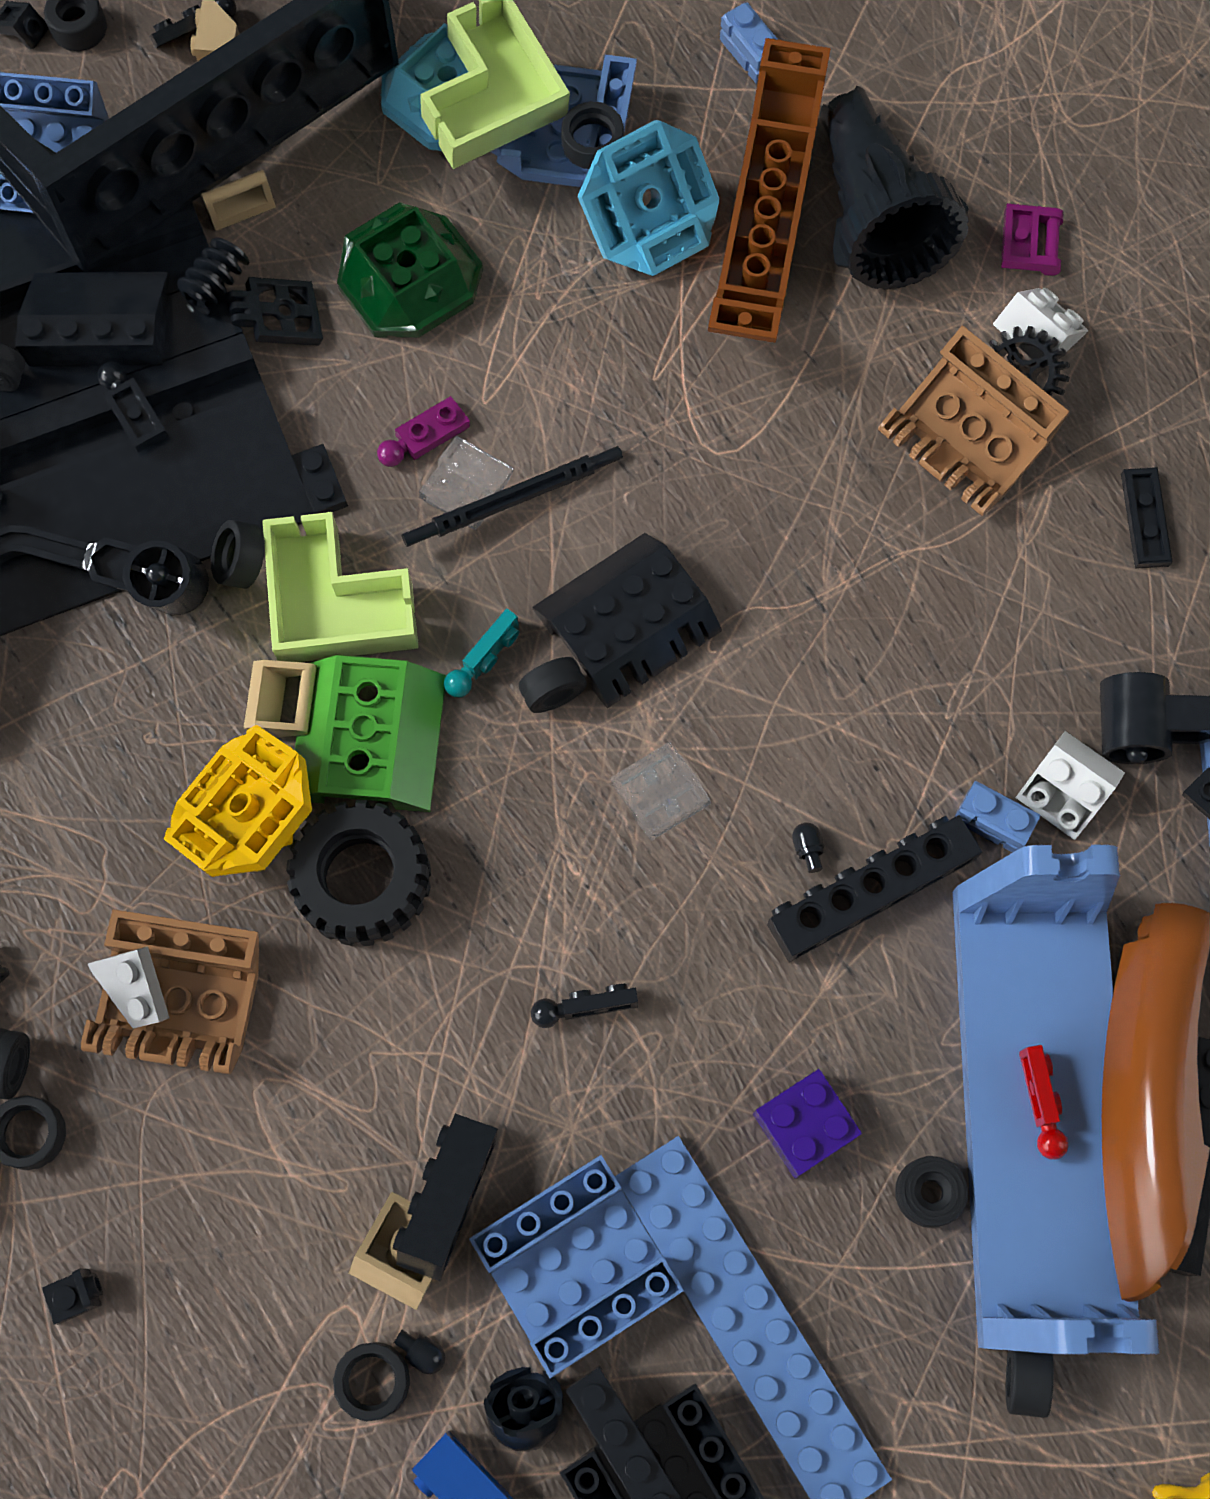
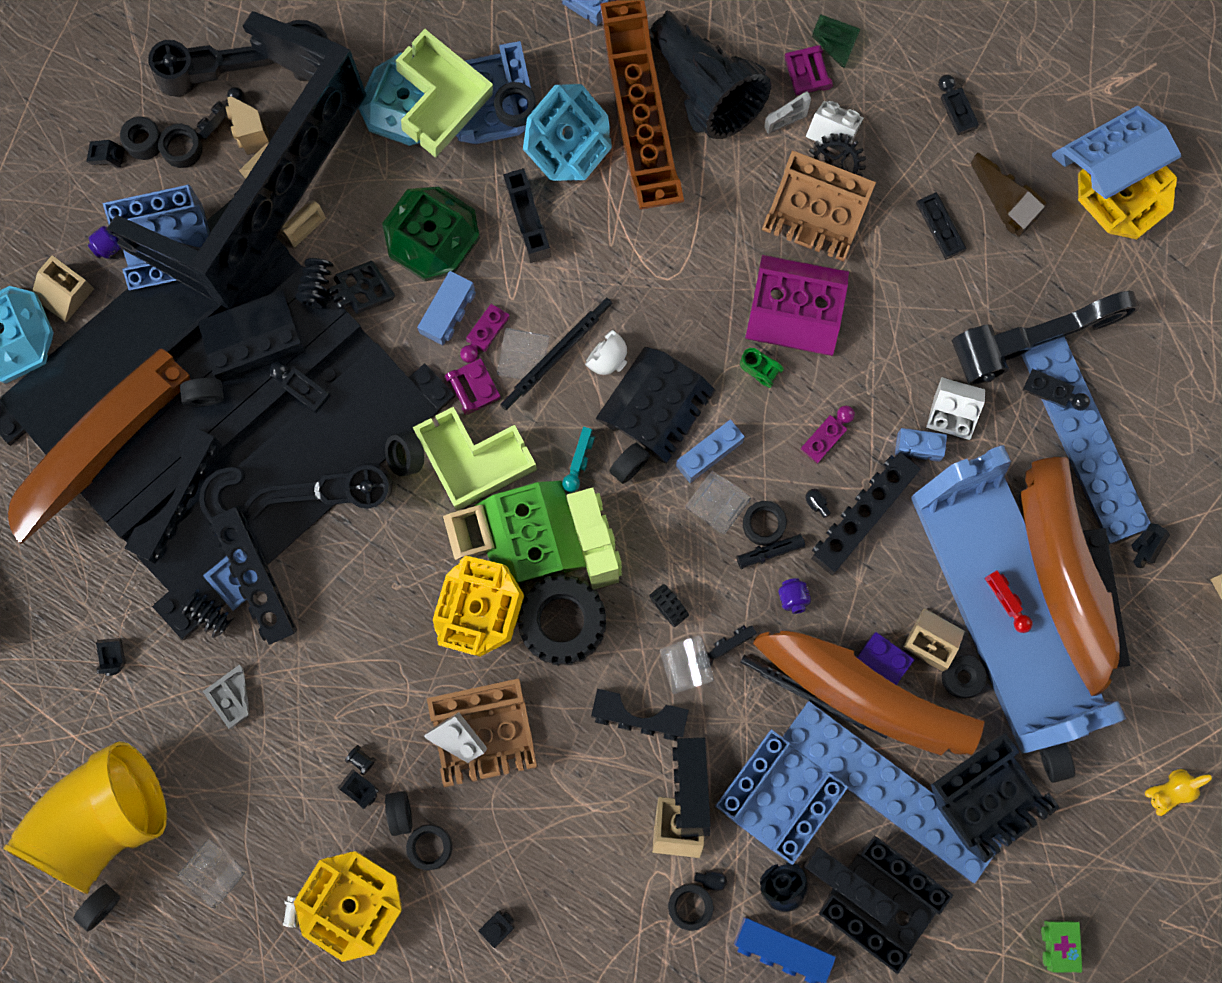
camera: 20 degrees left, 5 degrees up
(112, 28) = (179, 130): none -> black tyre
(378, 1030) = (668, 721): none -> black arch
(385, 380) = (447, 308): none -> medium blue brick
(389, 500) = (479, 382): none -> magenta plate
(455, 757) = (595, 538): none -> yellowish green piece
(516, 1010) = (686, 665): none -> clear slope
(525, 911) = (669, 605): none -> black tyre
(550, 303) = (526, 215): none -> black arch
(585, 523) = (608, 355): none -> white cylinder
(678, 712) = (710, 451): none -> medium blue brick
(691, 1134) = (783, 680): none -> black axle
(709, 890) = (770, 551): none -> black pin
(717, 818) = (764, 540): none -> black tyre
(718, 969) = (794, 595): none -> dark purple head
(770, 1166) = (866, 696): none -> dark orange slope
(803, 626) = (761, 368): none -> green piece
(863, 753) = (828, 434): none -> magenta plate
(878, 566) = (795, 318): none -> magenta slope
(900, 1399) = (991, 799): none -> black slope
(905, 1117) = (934, 640): none -> tan slope
(981, 284) = (789, 113): none -> light grey wing
(1089, 208) = (836, 38): none -> clear green wing

